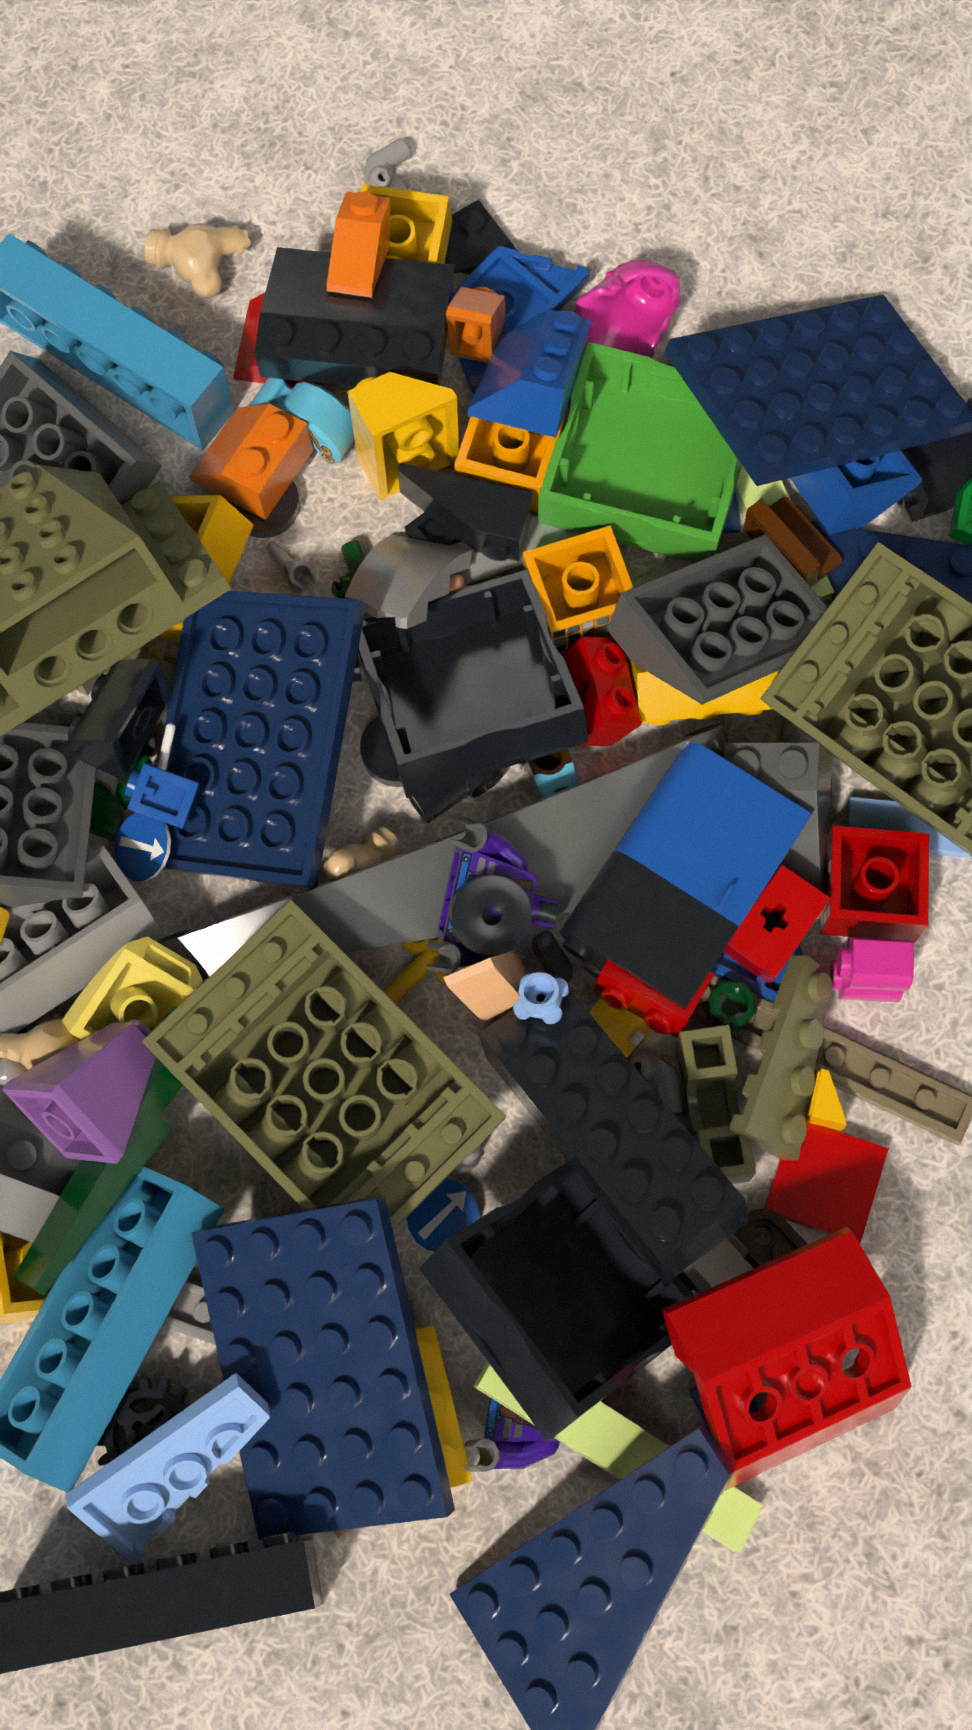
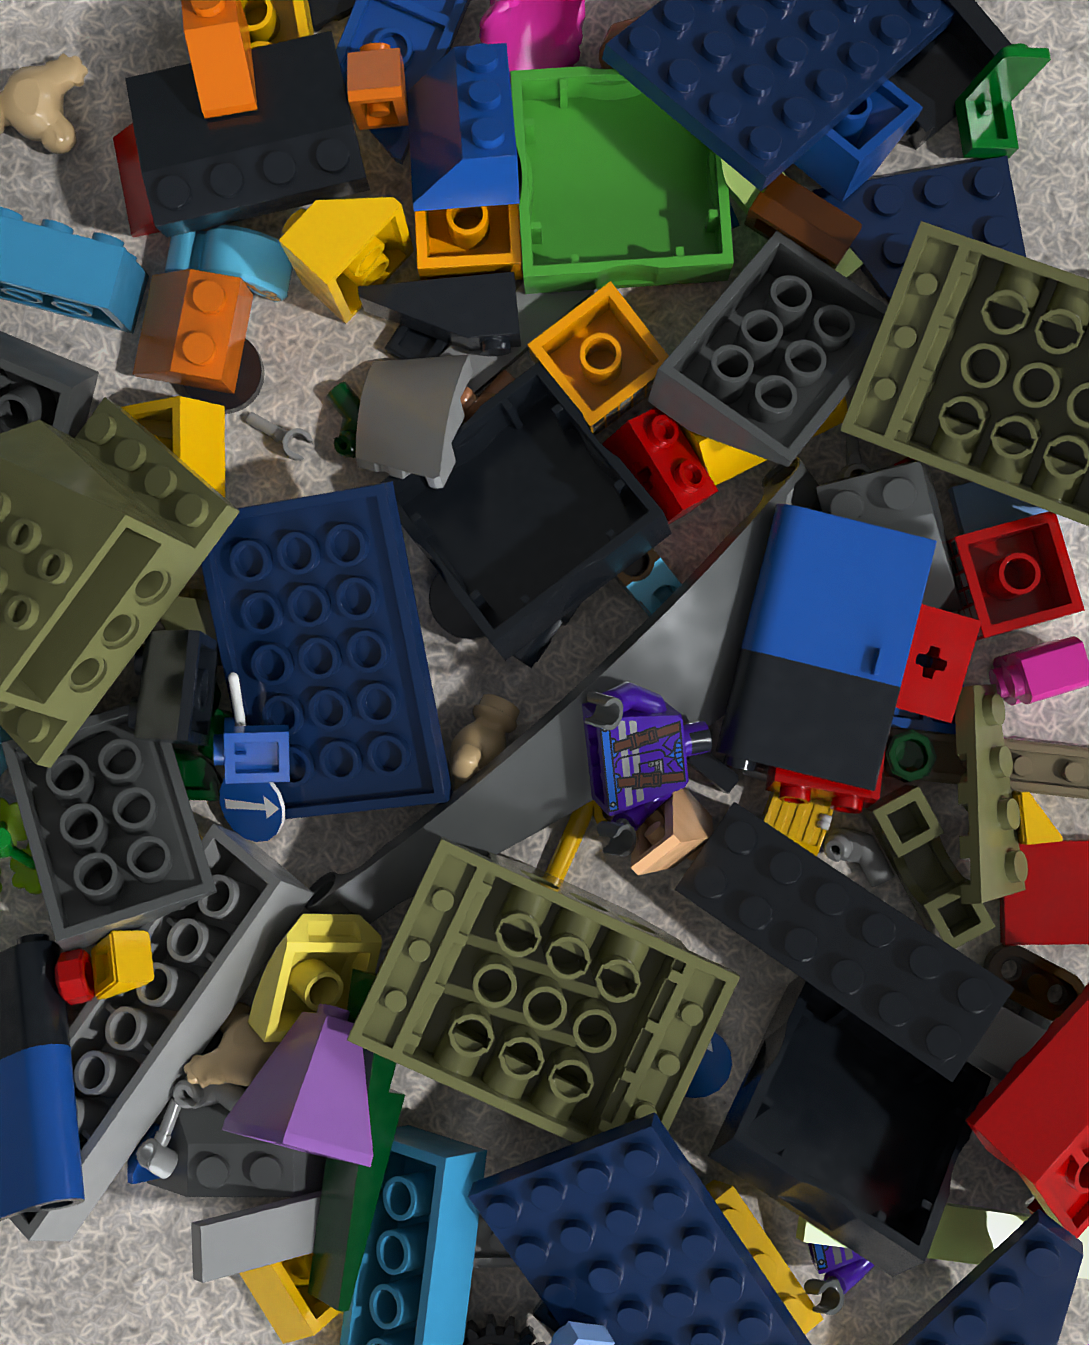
camera: 20 degrees left, 15 degrees up
(506, 930) = (633, 758): black piece -> none
(536, 985) = (717, 827): light blue plate -> none

